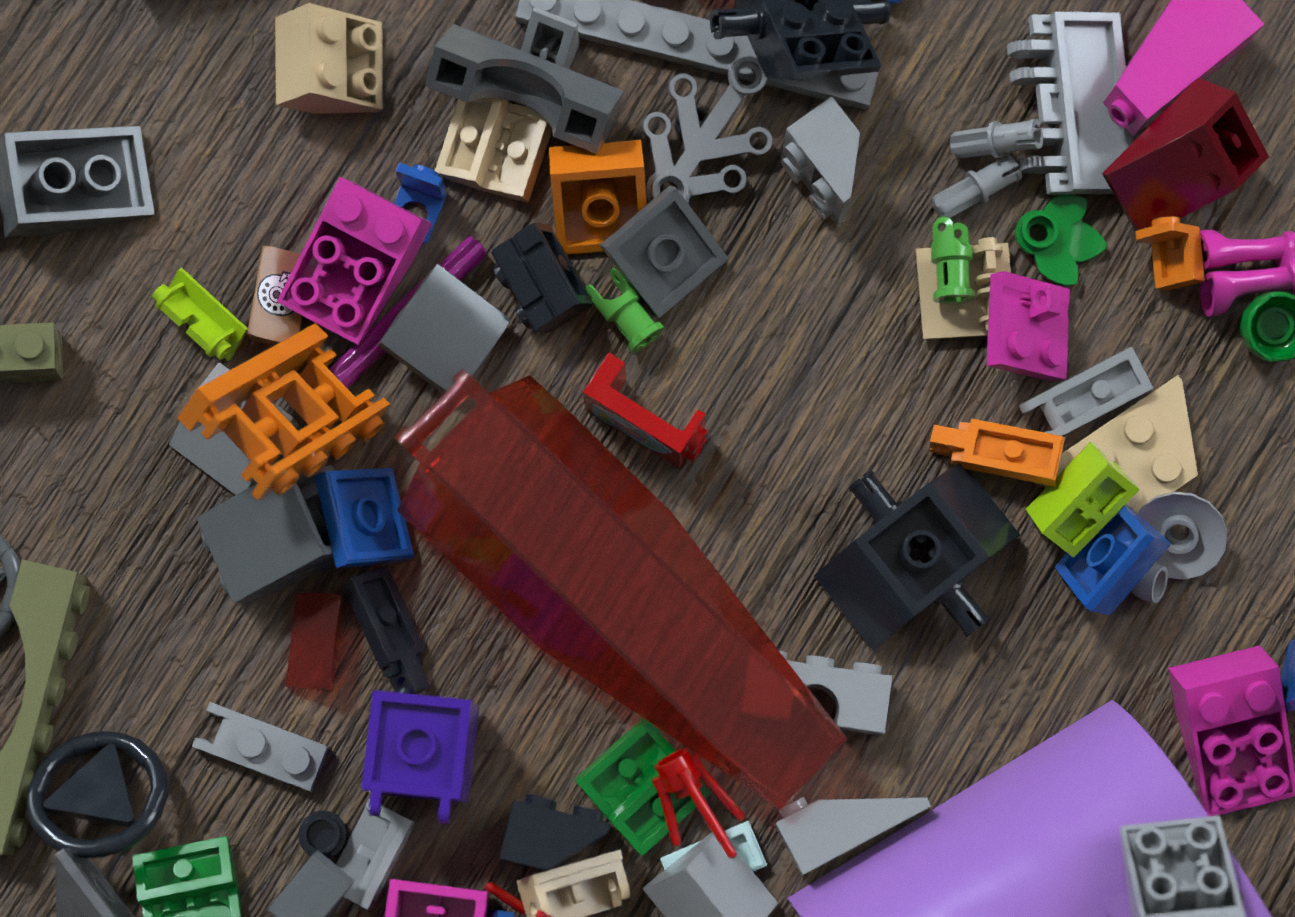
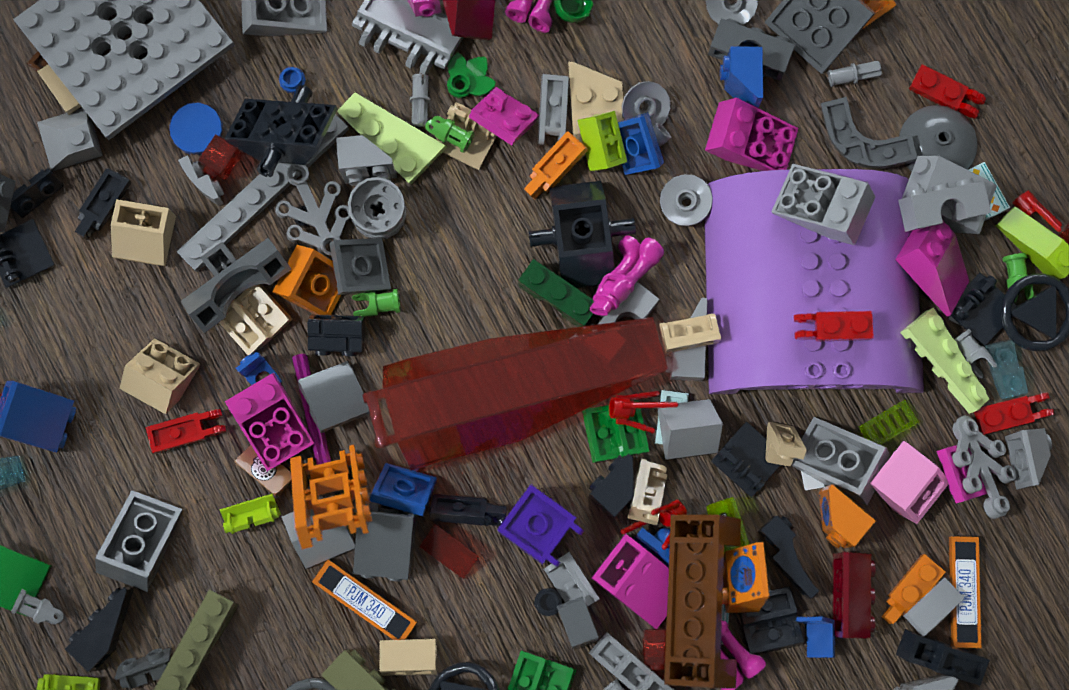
camera: 60 degrees left, 0 degrees up
(121, 673) = (408, 657): none -> tan hinge
(168, 561) = (364, 601): none -> tile
(265, 748) = (487, 607): light grey hinge -> none
(267, 145) = (182, 431): none -> red hinge
(636, 422) = (439, 326): red panel -> none
(769, 196) = (372, 194): none -> light grey wheel
(800, 574) = (551, 288): none -> dark green arch
(857, 810) = (690, 333): none -> tan hinge
(871, 657) = (620, 282): none -> dark pink piece
(890, 193) = (406, 145): none -> yellowish green wing
(997, 139) = (403, 75): light grey axle -> none
(1073, 661) = (683, 188): none -> light grey dish
(1174, 252) = (509, 27): orange bracket -> none

